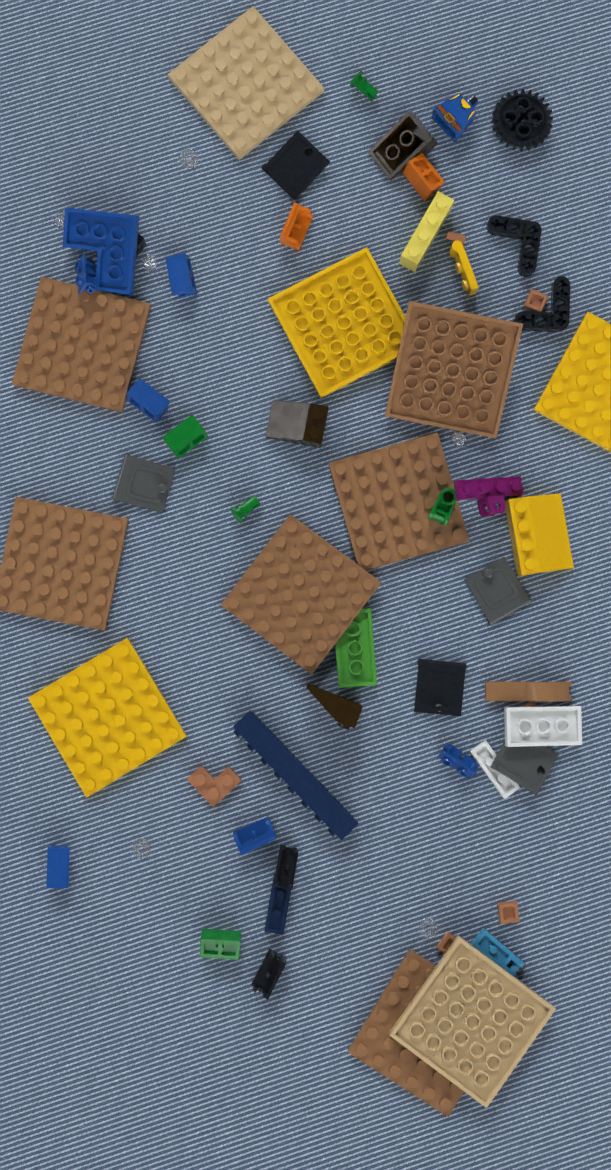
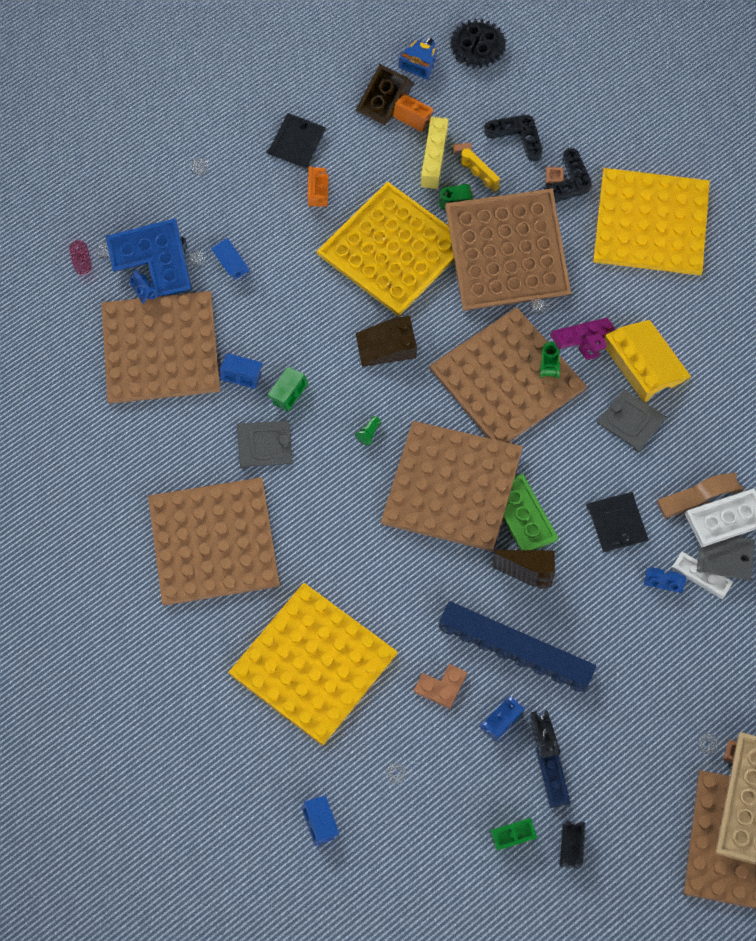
camera: 15 degrees left, 20 degrees down
(38, 217) = (80, 255): none -> clear pink plate
(246, 83) = (225, 93): tan plate -> none
(364, 86) = (331, 62): green pin -> none
(431, 289) = (455, 194): none -> green piece

